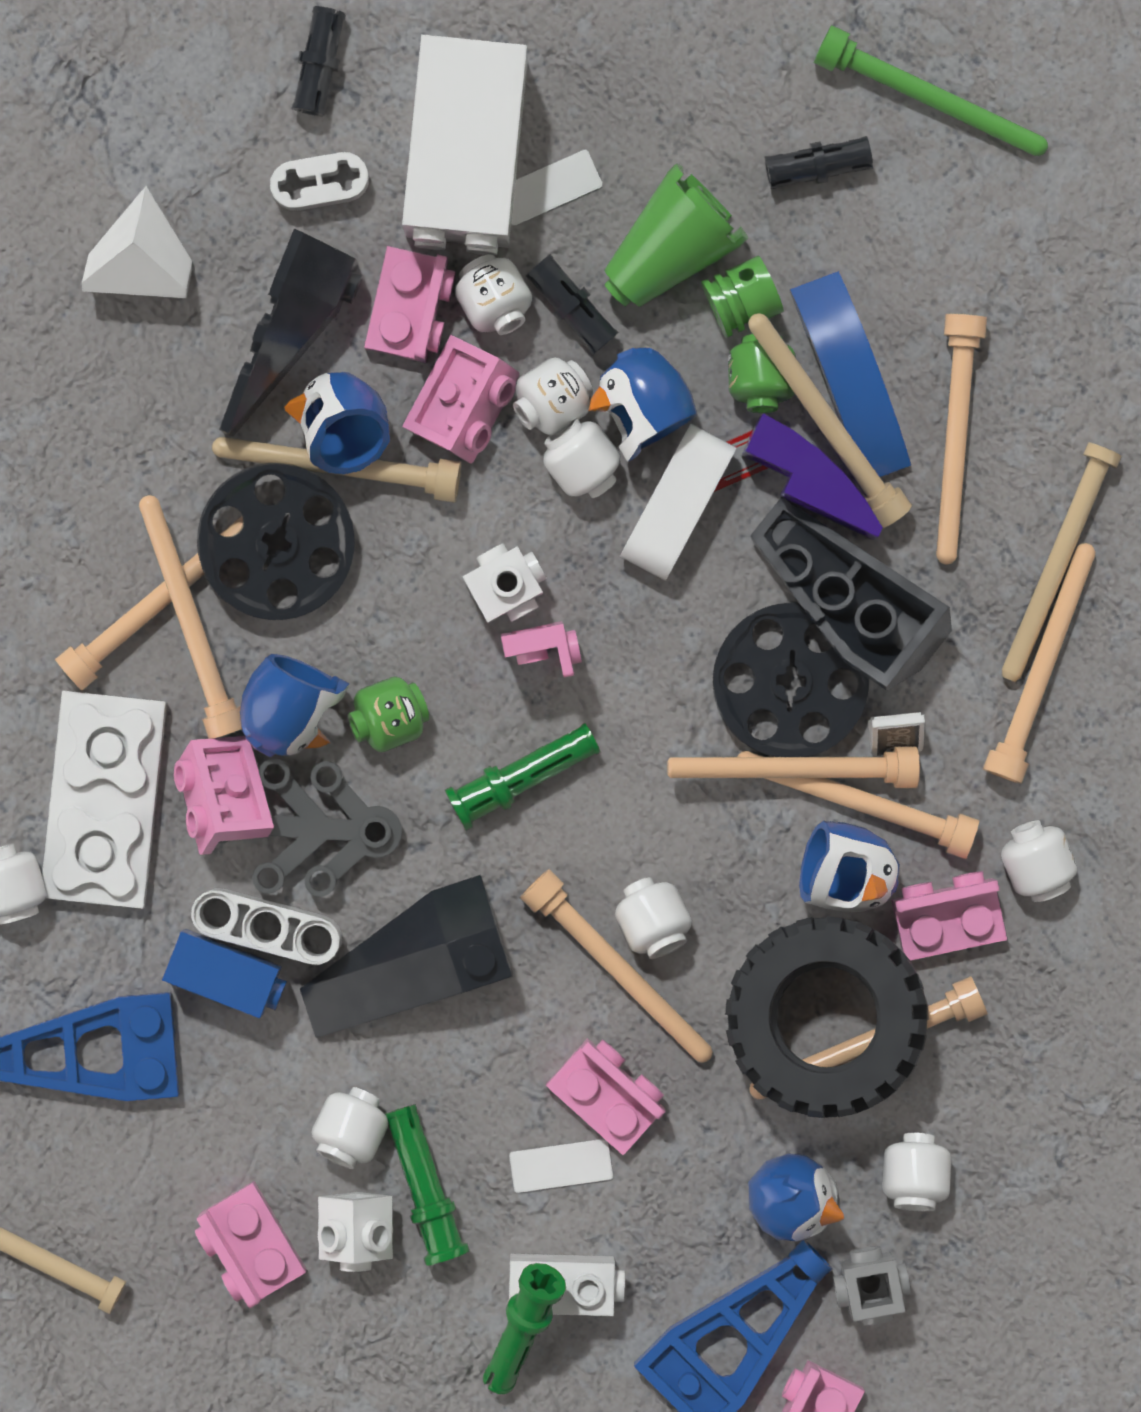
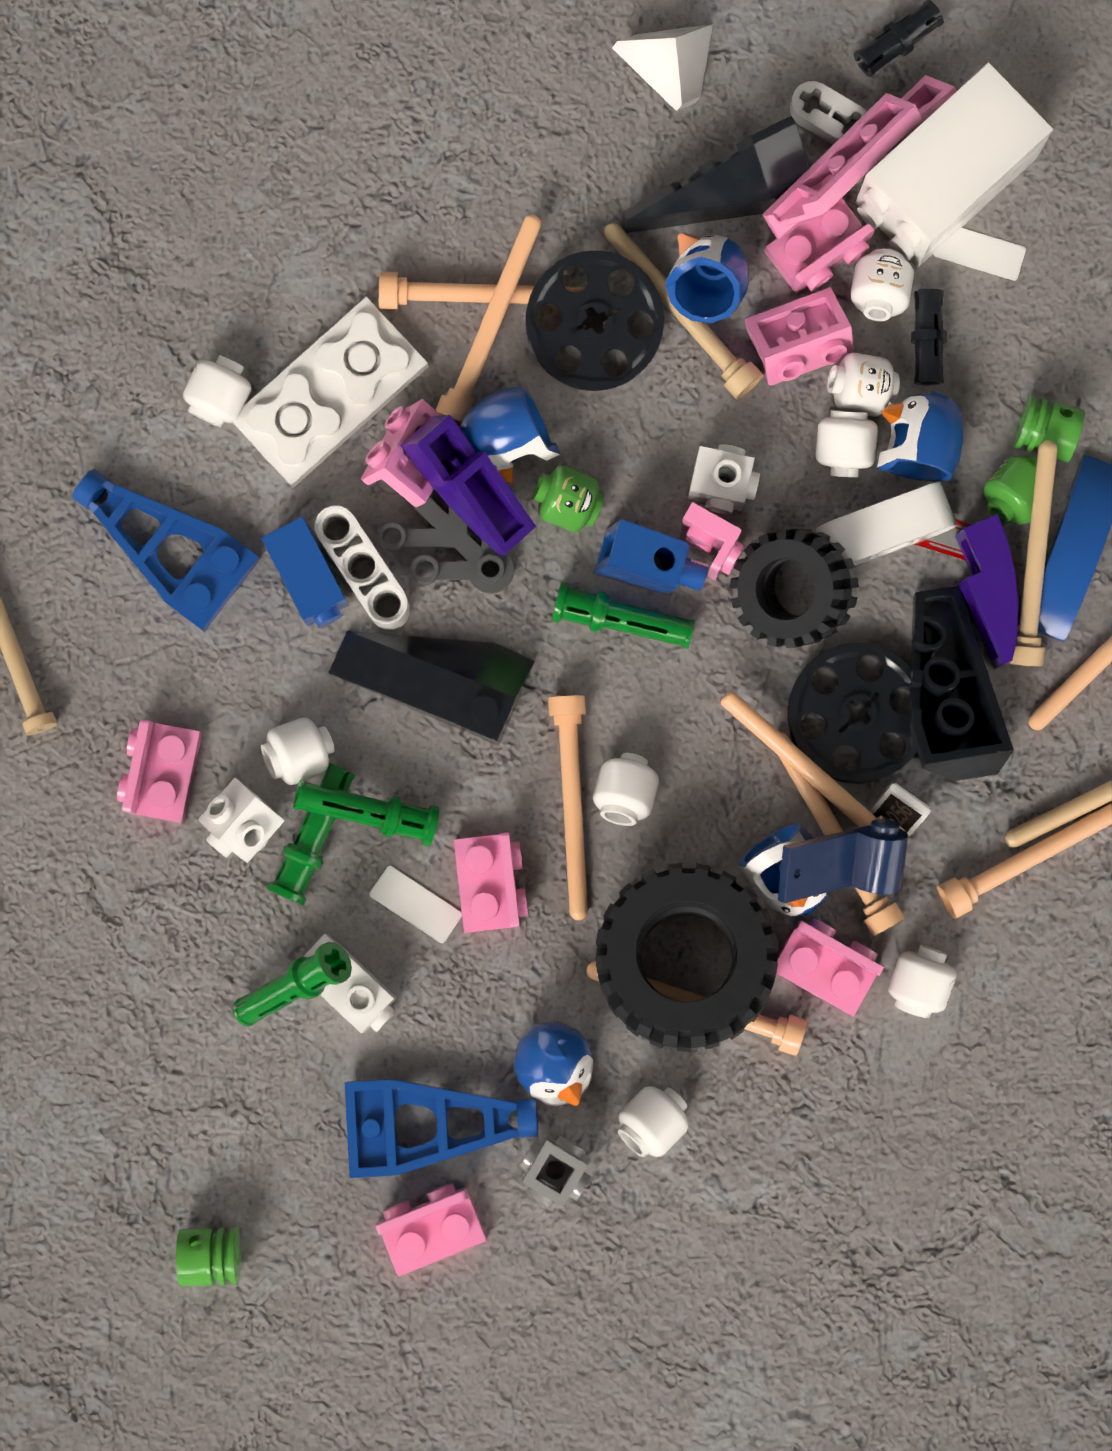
camera: 45 degrees right, 5 degrees down
(296, 780) = (468, 483): none -> dark purple slope
(376, 202) = (856, 154): none -> bright pink wedge
(474, 1116) = (392, 815): none -> green pin
(486, 718) = (629, 558): none -> blue torso
(641, 665) = (758, 594): none -> black tyre
(671, 240) = (1032, 349): bright green cone -> none
(902, 804) = (860, 857): none -> dark blue door

